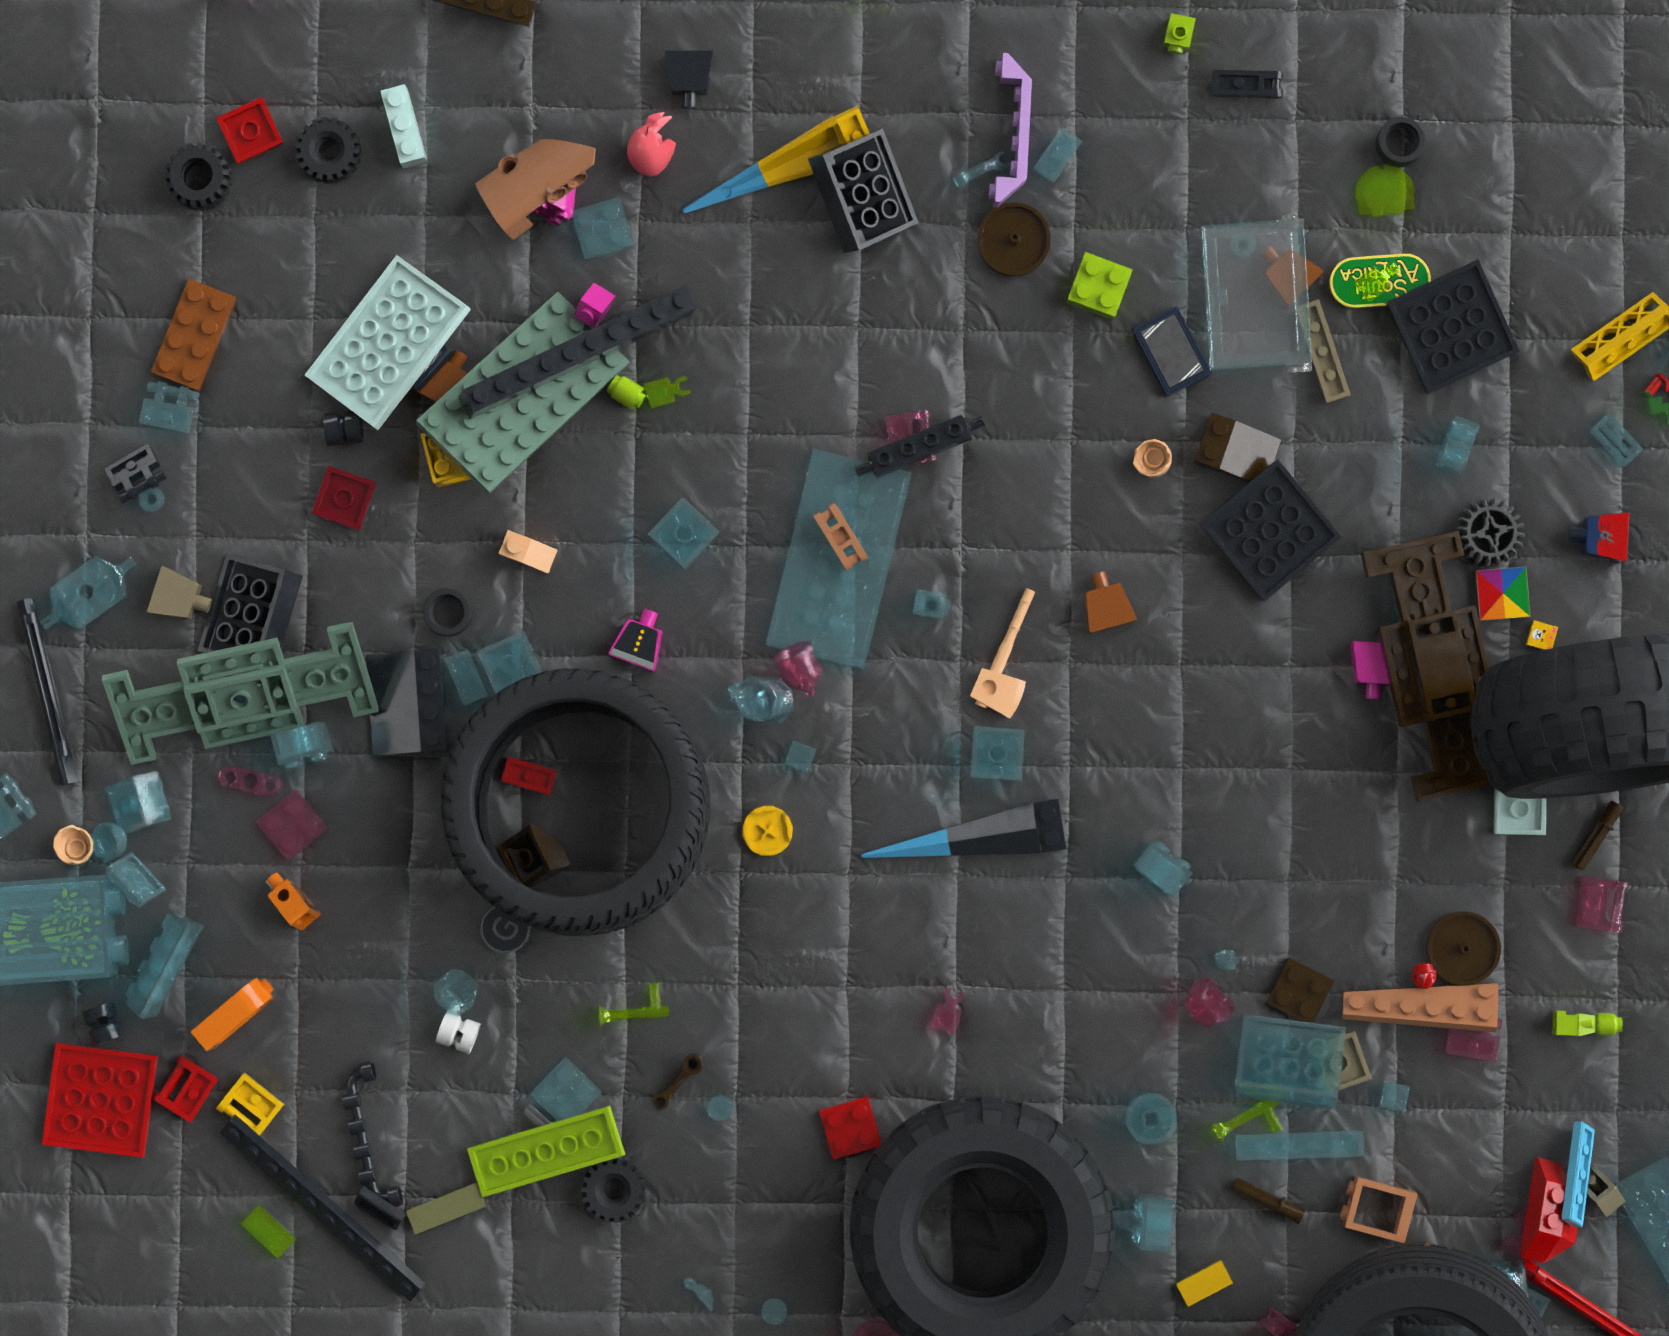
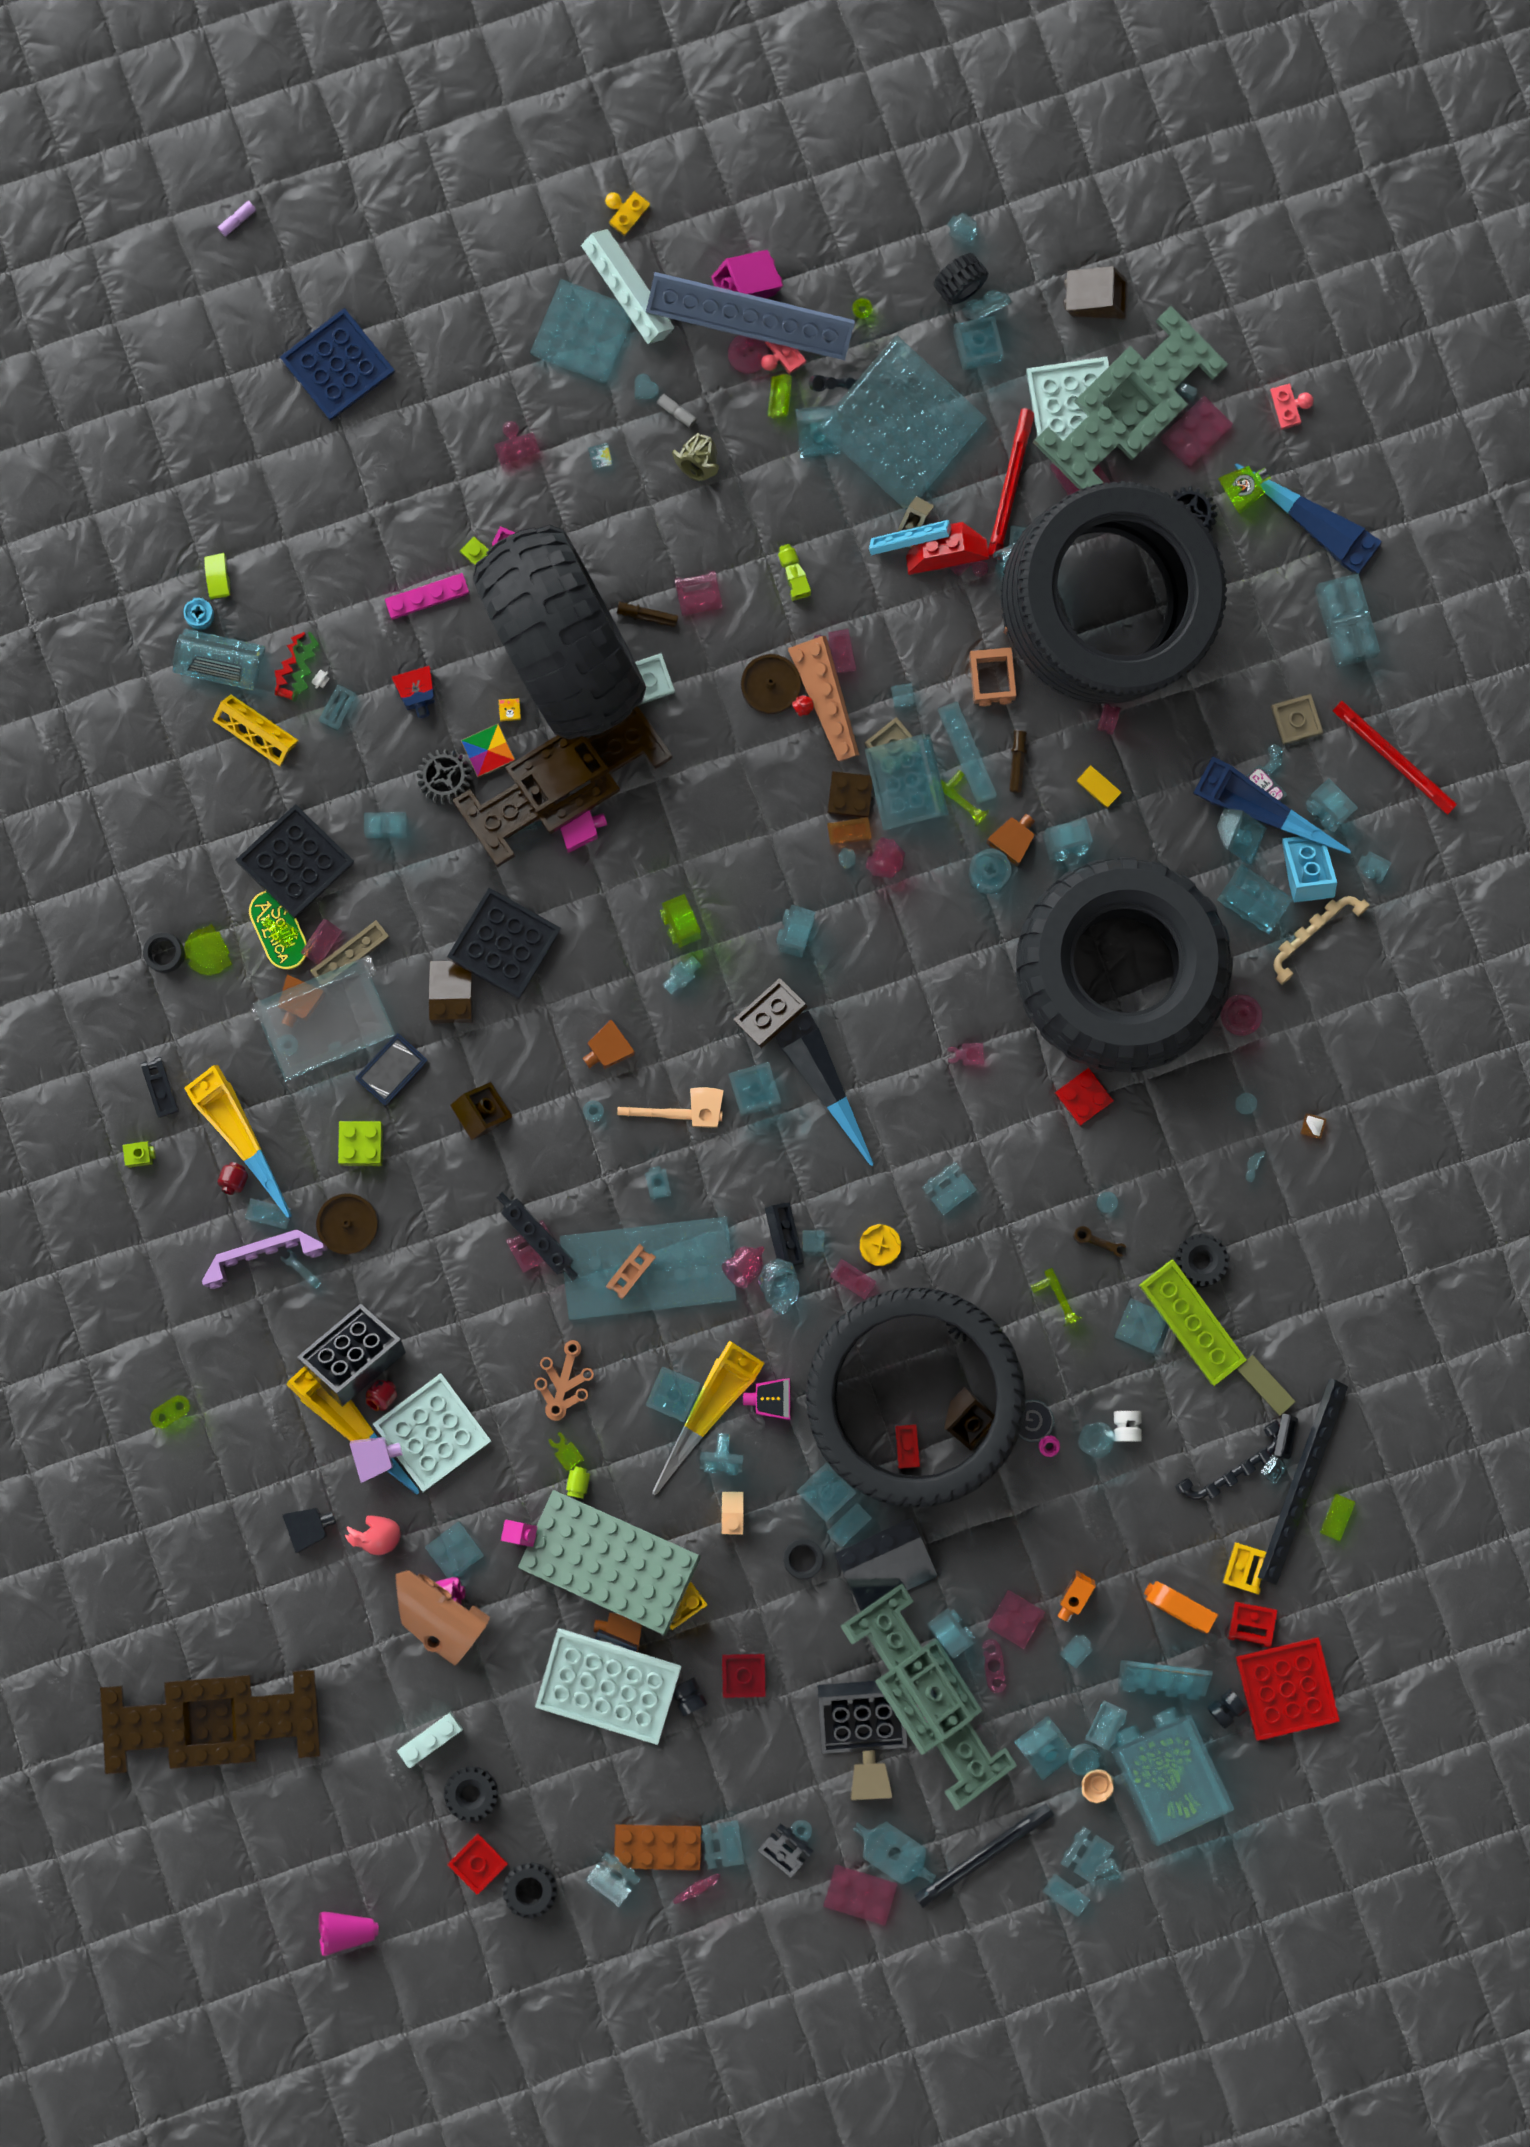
camera: 115 degrees left, 5 degrees down
(57, 538) = (860, 1894): none -> clear pink plate
(131, 360) = (696, 1888): none -> clear pink piece
(173, 266) = (608, 1883): none -> clear light blue plate
(231, 879) = (1076, 1650): none -> clear light blue brick
(348, 1179) = (1273, 1469): none -> clear light blue tile
(463, 939) = (1053, 1450): none -> dark pink plate
(577, 352) = (562, 1529): black brick -> none
(592, 561) = (721, 1459): none -> clear light blue plate
(675, 596) = (725, 1383): none -> yellow plate
(739, 174) = (373, 1456): none -> lavender torso
(740, 785) = (853, 1279): none -> clear pink plate
(743, 250) = (433, 1432): none -> light aqua plate
(744, 416) = (562, 1383): none -> nougat plant
(794, 933) = (954, 1193): none -> clear light blue plate
(806, 208) = (381, 1395): none -> dark red head
(820, 727) = (784, 1233): none -> black slope
(1048, 562) = (593, 1104): none -> clear light blue plate
(1078, 804) = (770, 1013): none -> plate
(1087, 435) = (481, 1110): none -> dark brown slope
(1112, 129) = (232, 1178): none -> dark red head
(1152, 458) = (481, 1053): light nougat hair -> none
(1160, 719) = (681, 974): none -> clear light blue axle
(1178, 1160) = (1013, 838): none -> dark orange torso
(1198, 144) = (221, 1107): none -> yellow plate
(1221, 741) = (681, 921): none -> clear neon green brick
(1257, 974) = (849, 831): none -> clear orange plate
(1348, 324) = (321, 942): none -> clear pink plate
(1656, 432) = (320, 679): none -> white plate

